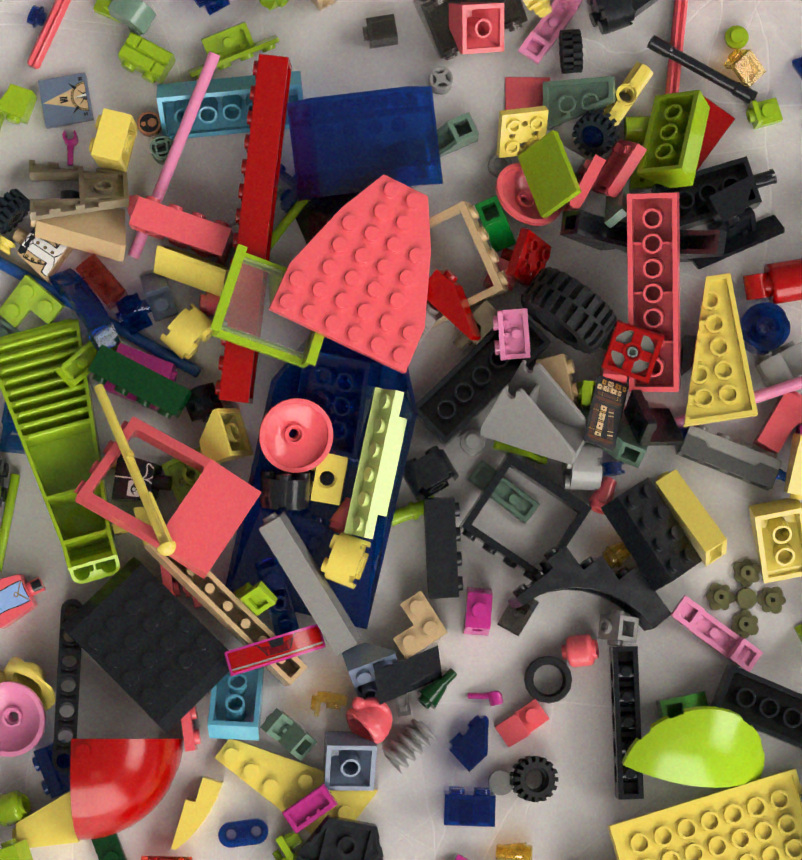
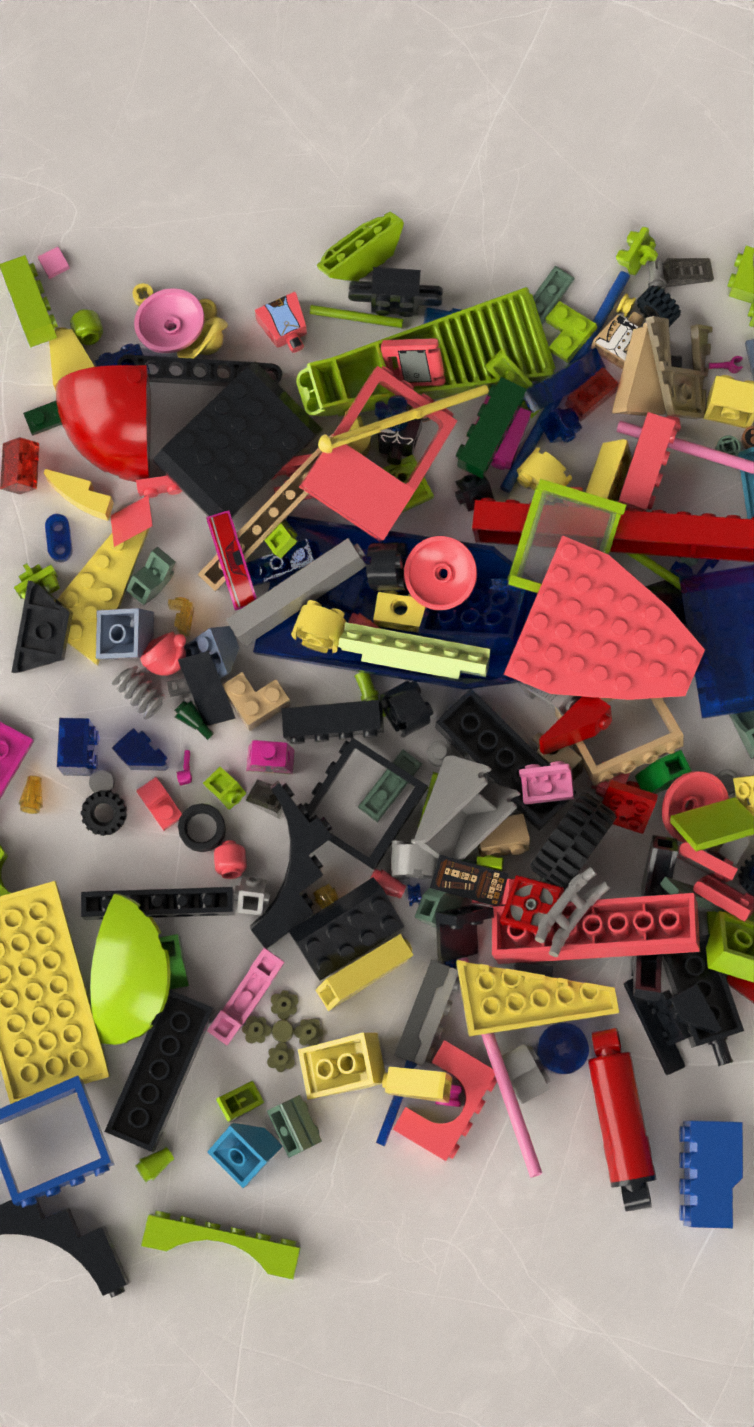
camera: 90 degrees right, 5 degrees down
(66, 457) = (415, 361): none -> coral container
(121, 481) = (396, 405): none -> clear blue piece
(159, 296) = (579, 451): sand blue slope -> none
(225, 436) = (441, 511): light yellow slope -> none
(228, 756) = (131, 521): none -> coral sticker
(237, 706) = (179, 529): medium azure slope -> none
(309, 808) = (80, 596): dark pink plate -> none
(507, 657) = (225, 788): none -> lime bracket
(637, 303) = (582, 905): none -> light grey piece

